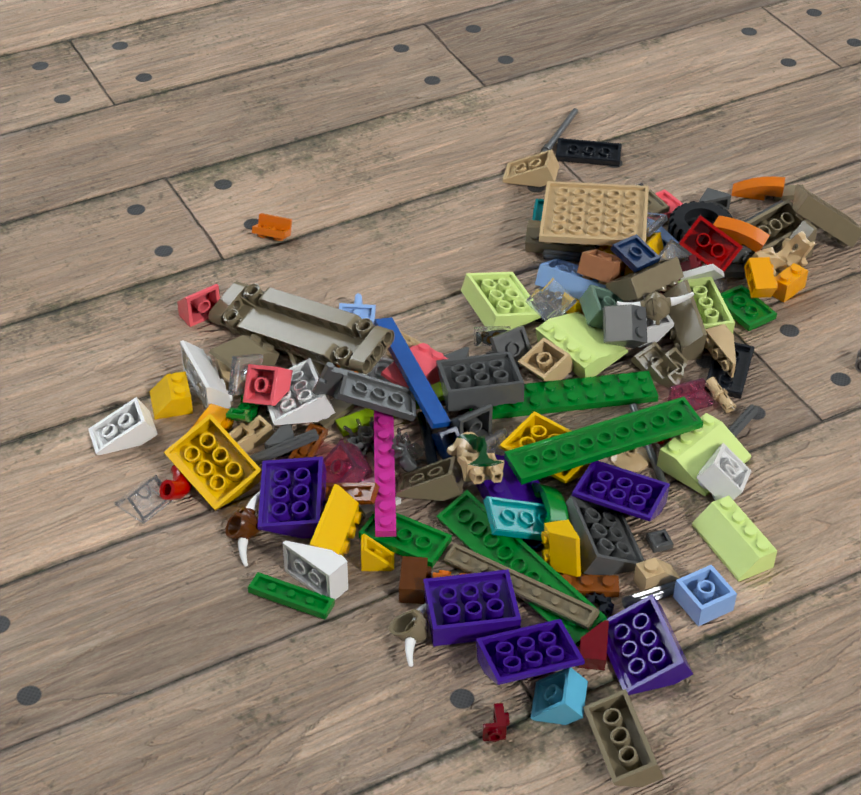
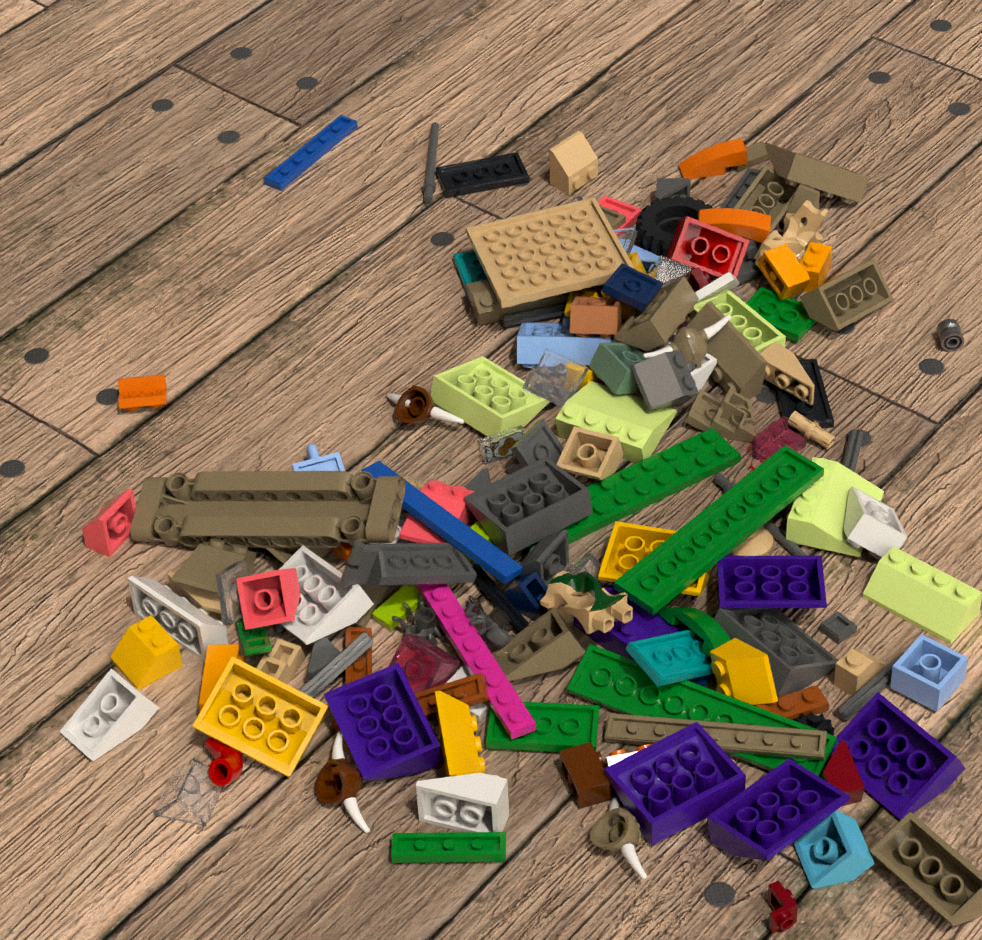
camera: 20 degrees left, 0 degrees up
(375, 556) = (521, 763): yellow slope -> none
(447, 292) = (418, 406): none -> reddish brown helmet
(479, 105) = (310, 153): none -> blue tile
(532, 170) = (429, 218): tan slope -> none
(653, 160) = (572, 163): none -> tan slope
(801, 309) = (848, 296): none -> dark tan slope

